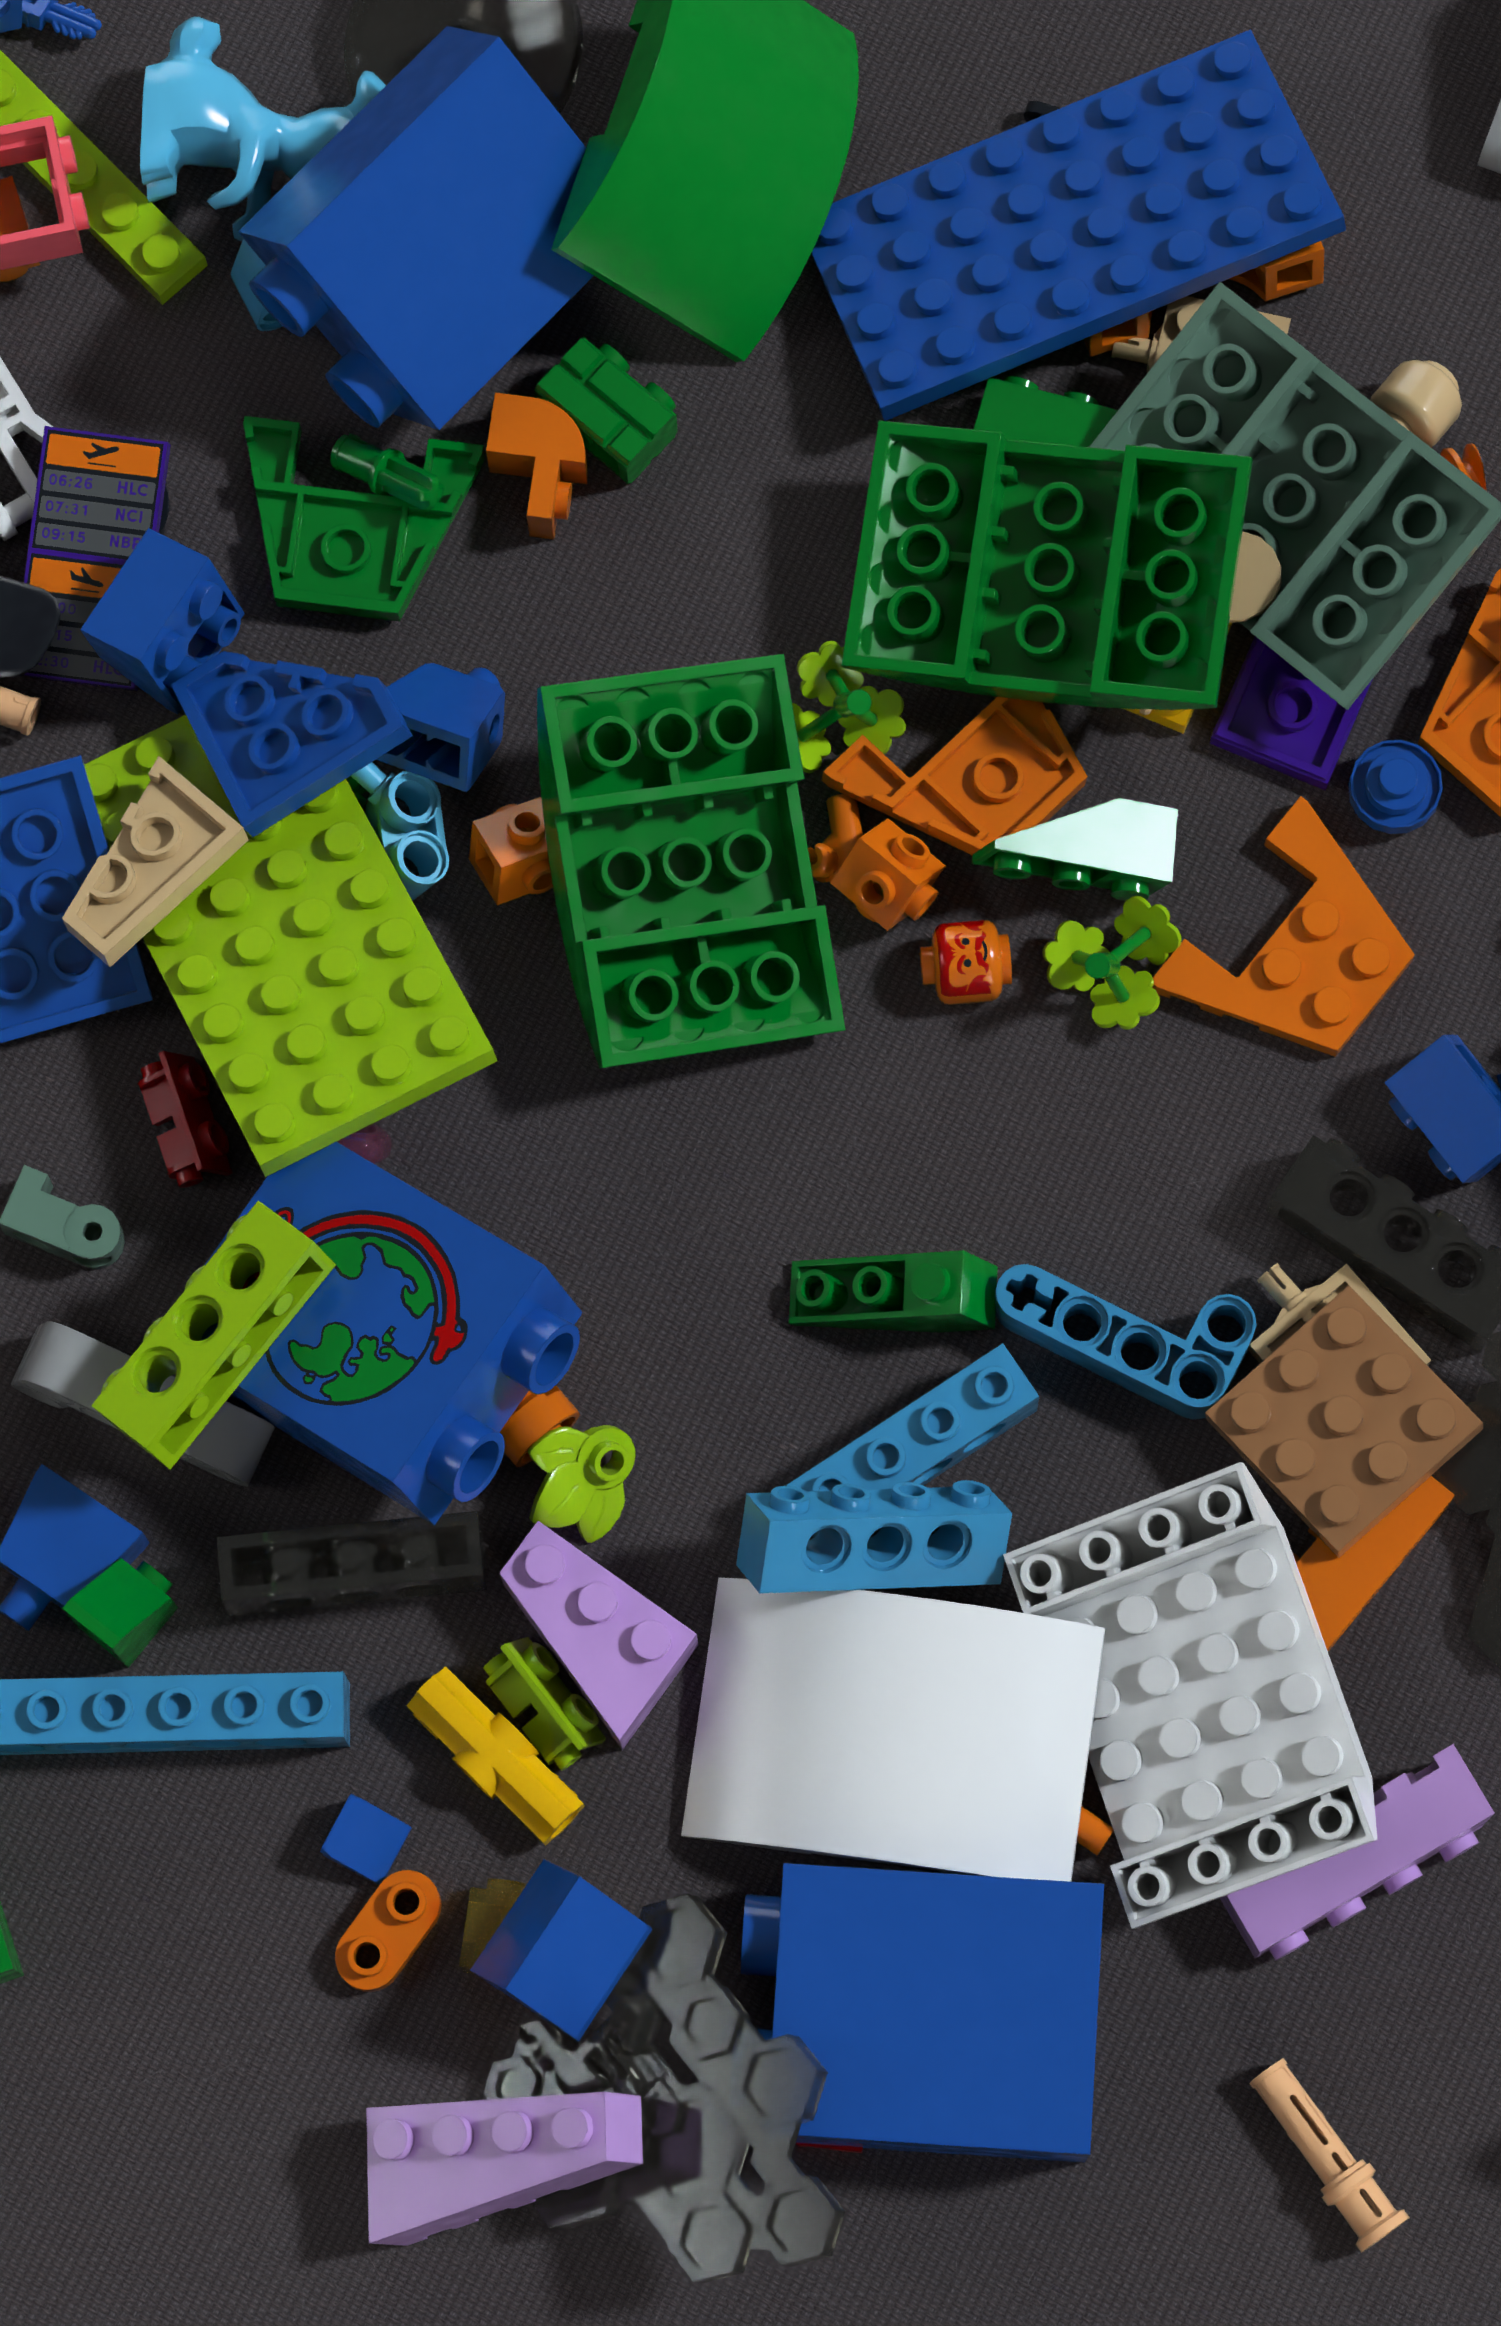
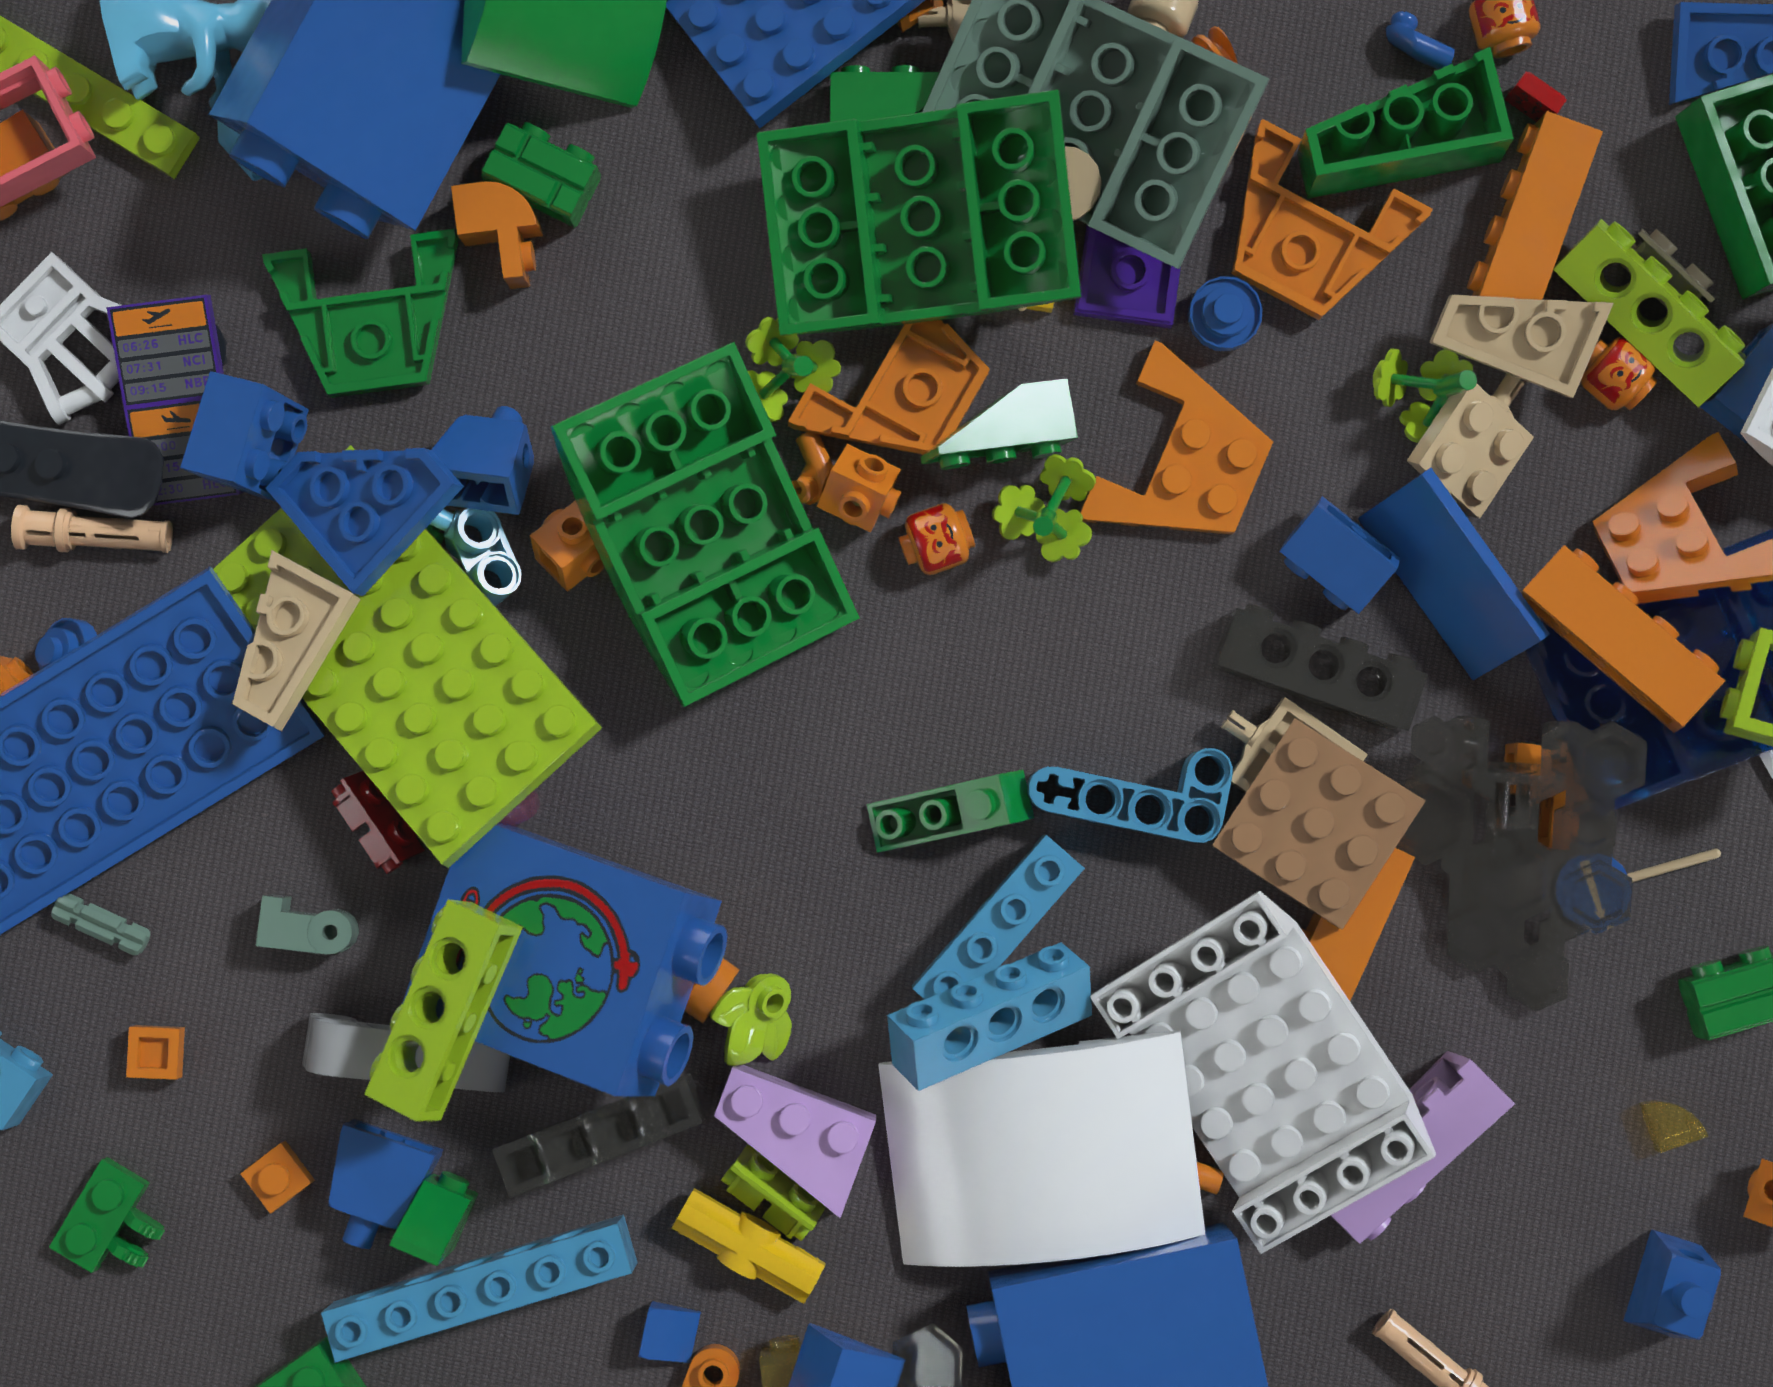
camera: 20 degrees left, 10 degrees up
(386, 471) = (384, 270): green axle -> none

